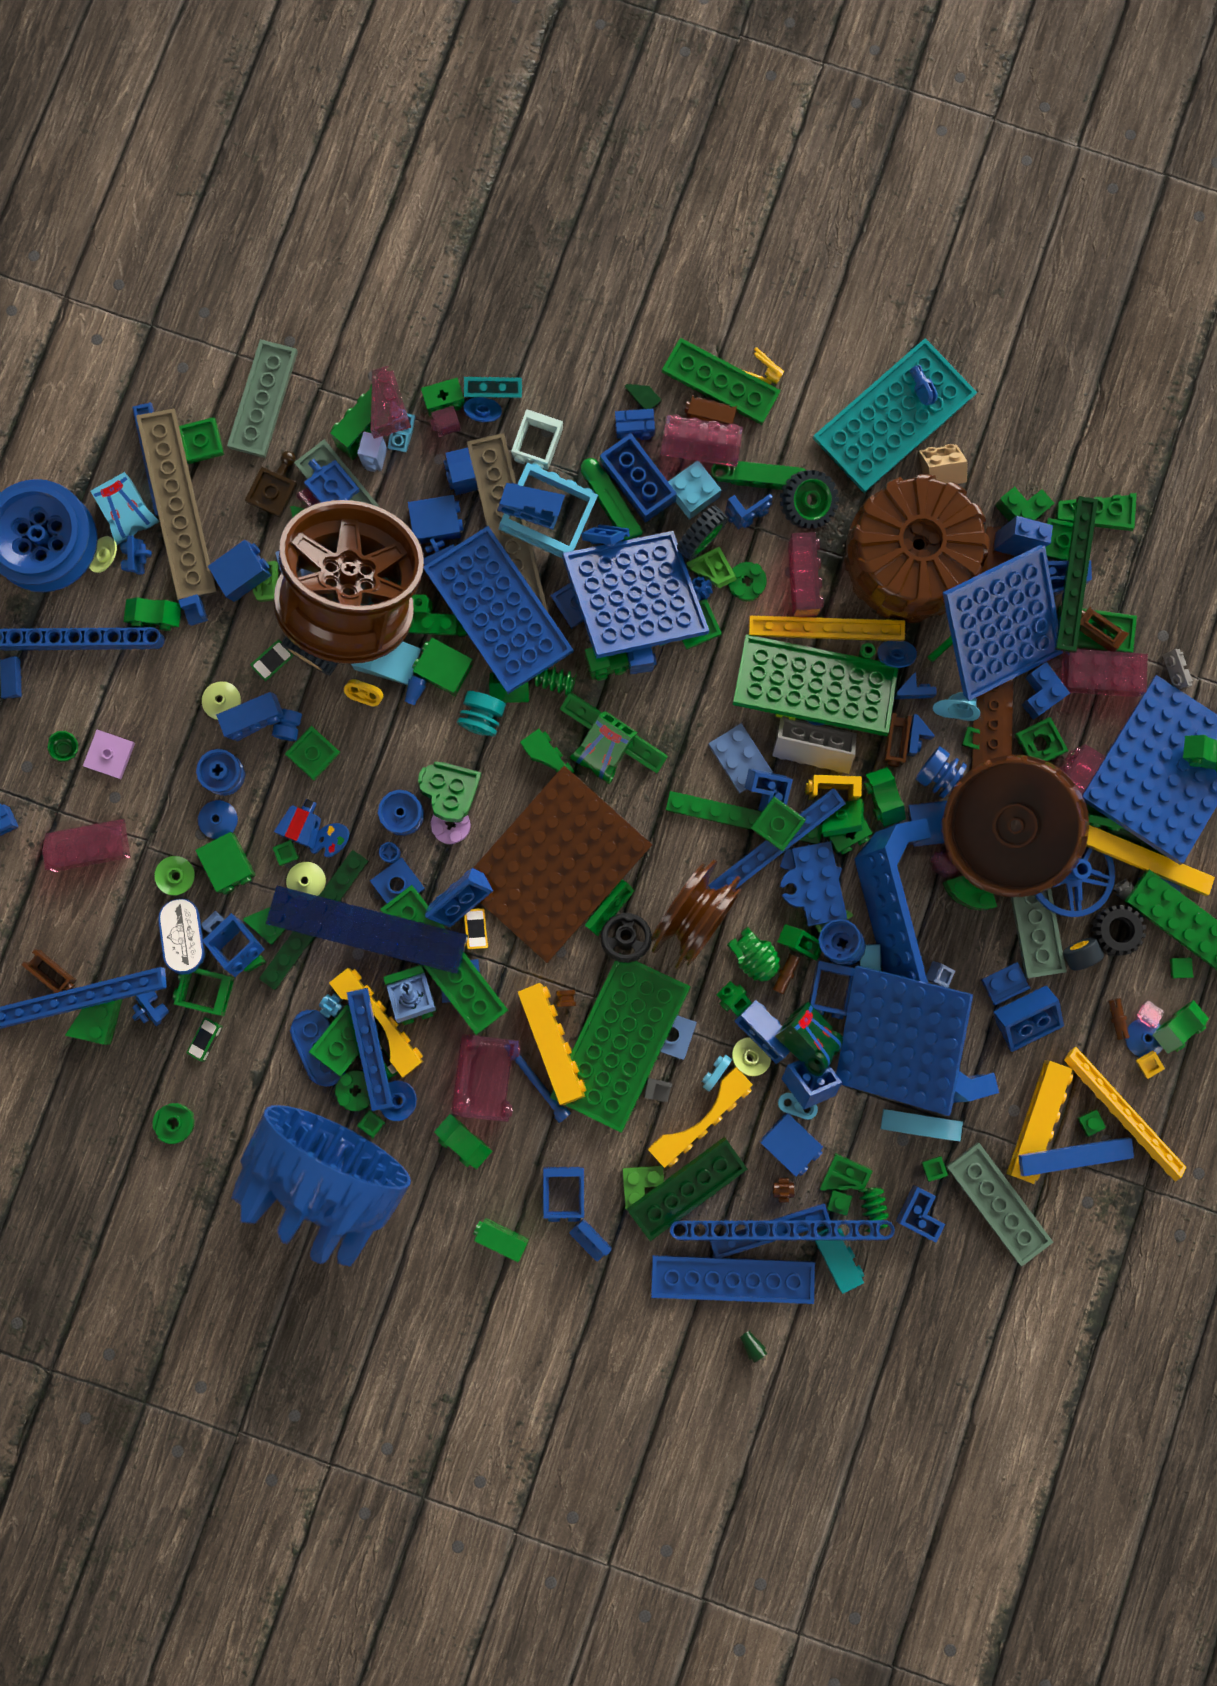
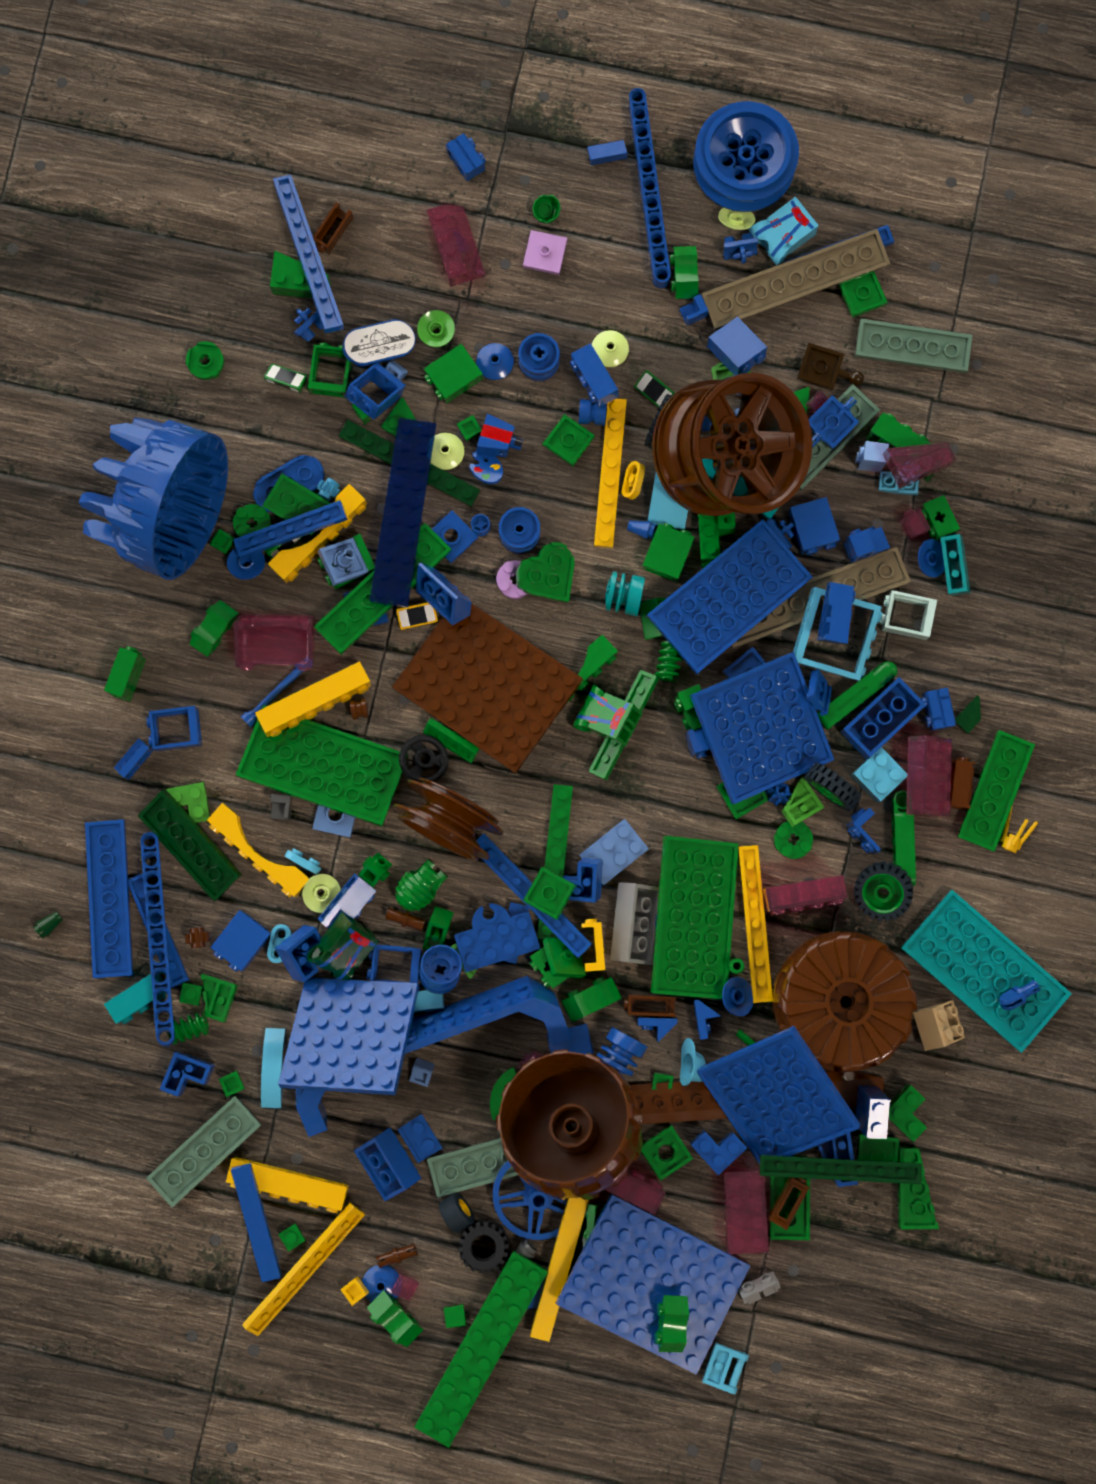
camera: 85 degrees right, 0 degrees up
(354, 715) = (610, 473): none -> yellow plate

